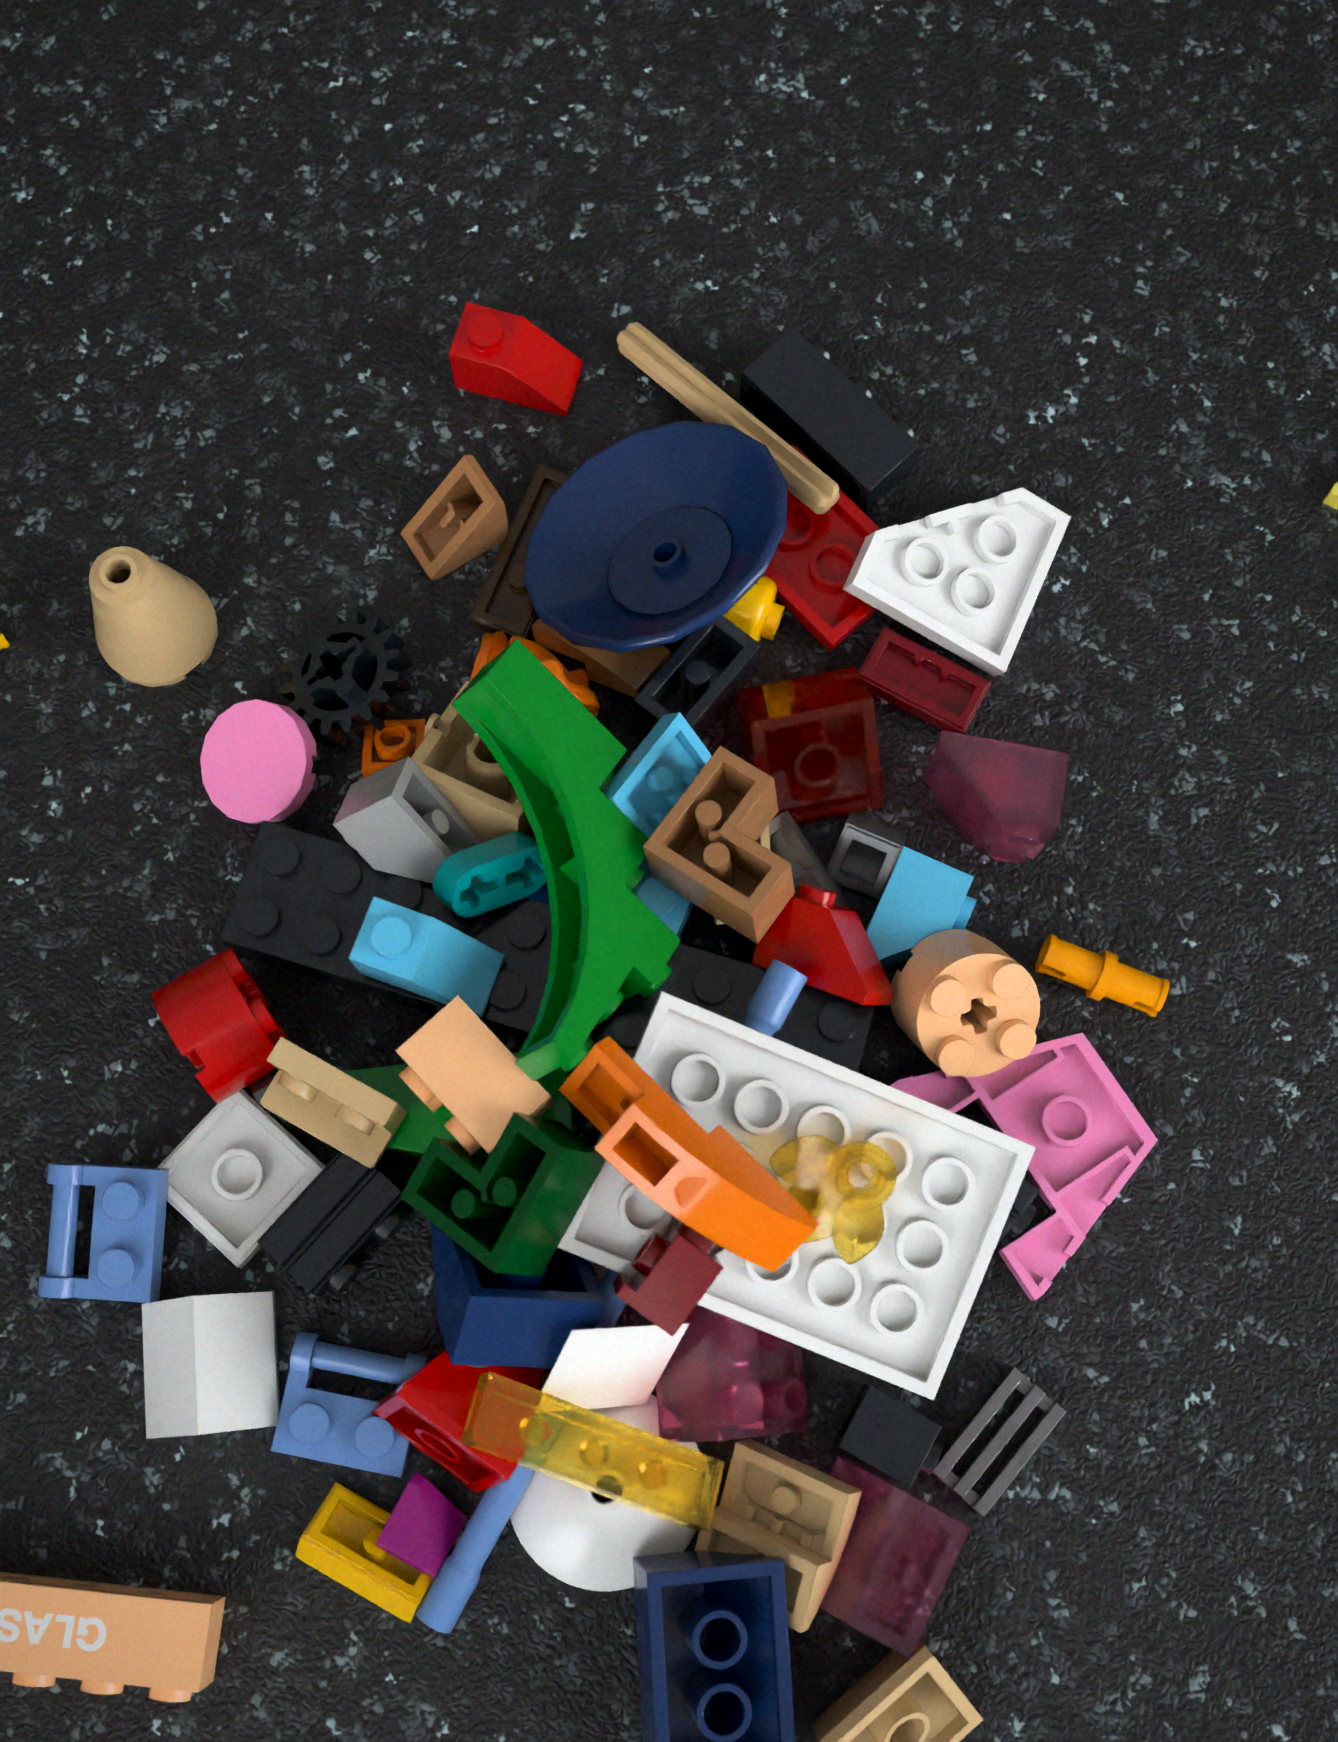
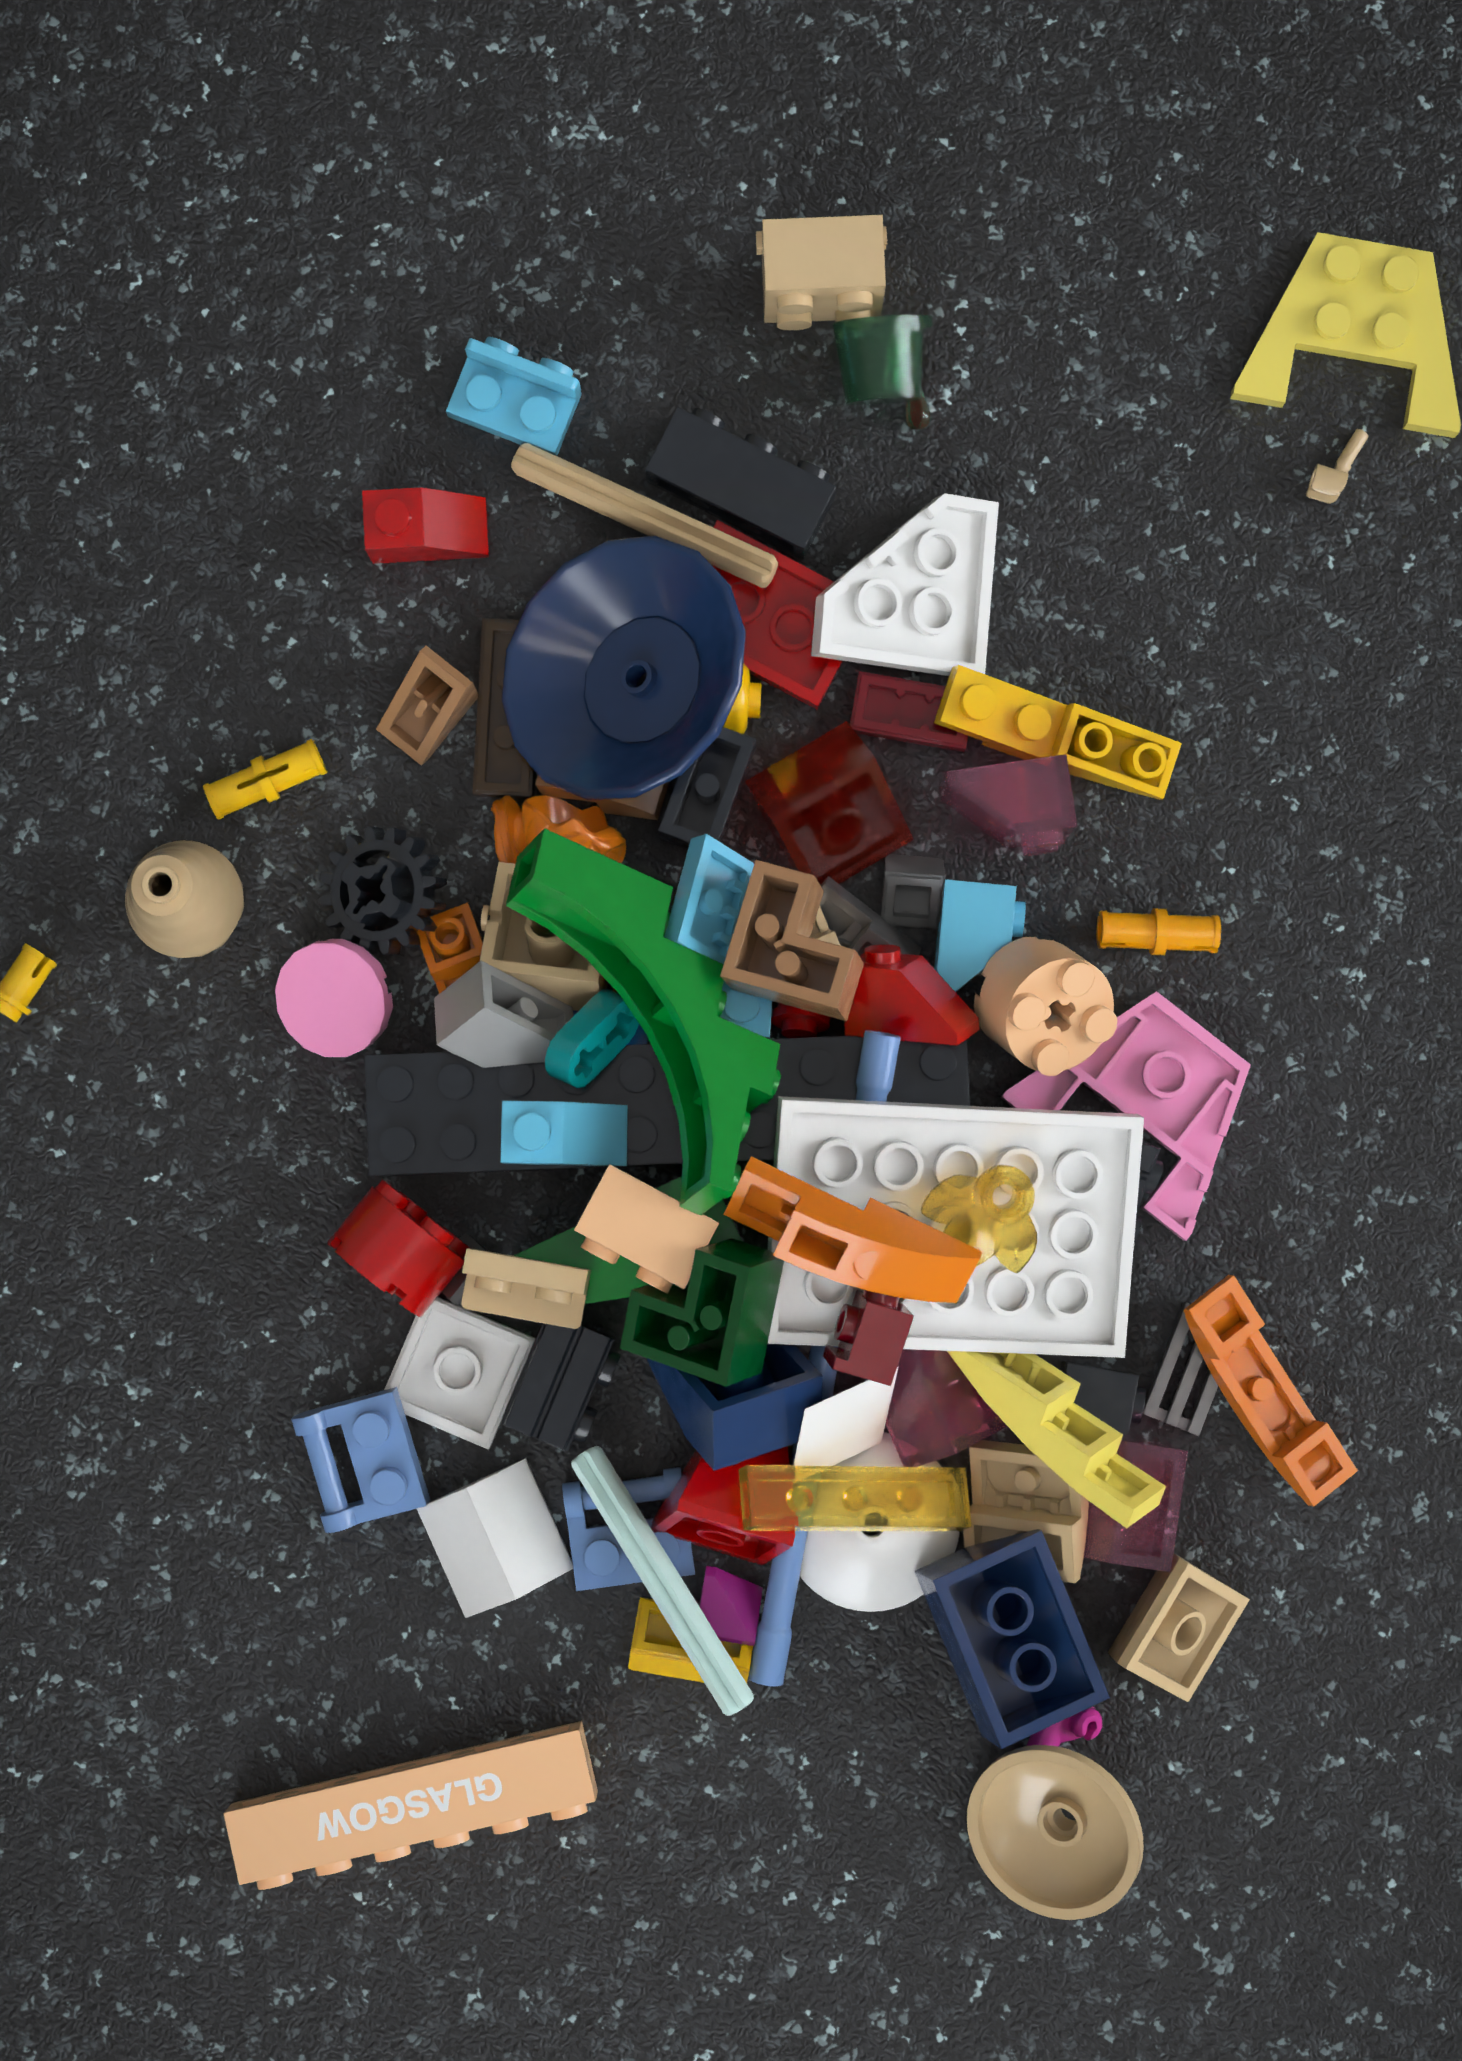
camera: 15 degrees left, 10 degrees up
(275, 540) = (264, 779): none -> yellow pin
(362, 1475) = (662, 1580): none -> light aqua axle
(644, 277) = (515, 395): none -> medium azure bracket
(705, 935) = (798, 1022): none -> red plate
(851, 1476) = (1075, 1444): none -> light yellow slope
(972, 249) = (822, 269): none -> tan brick
(1001, 352) = (884, 362): none -> clear green hat
(1066, 1495) = (1263, 1395): none -> orange slope
(1100, 773) = (1039, 727): none -> yellow slope

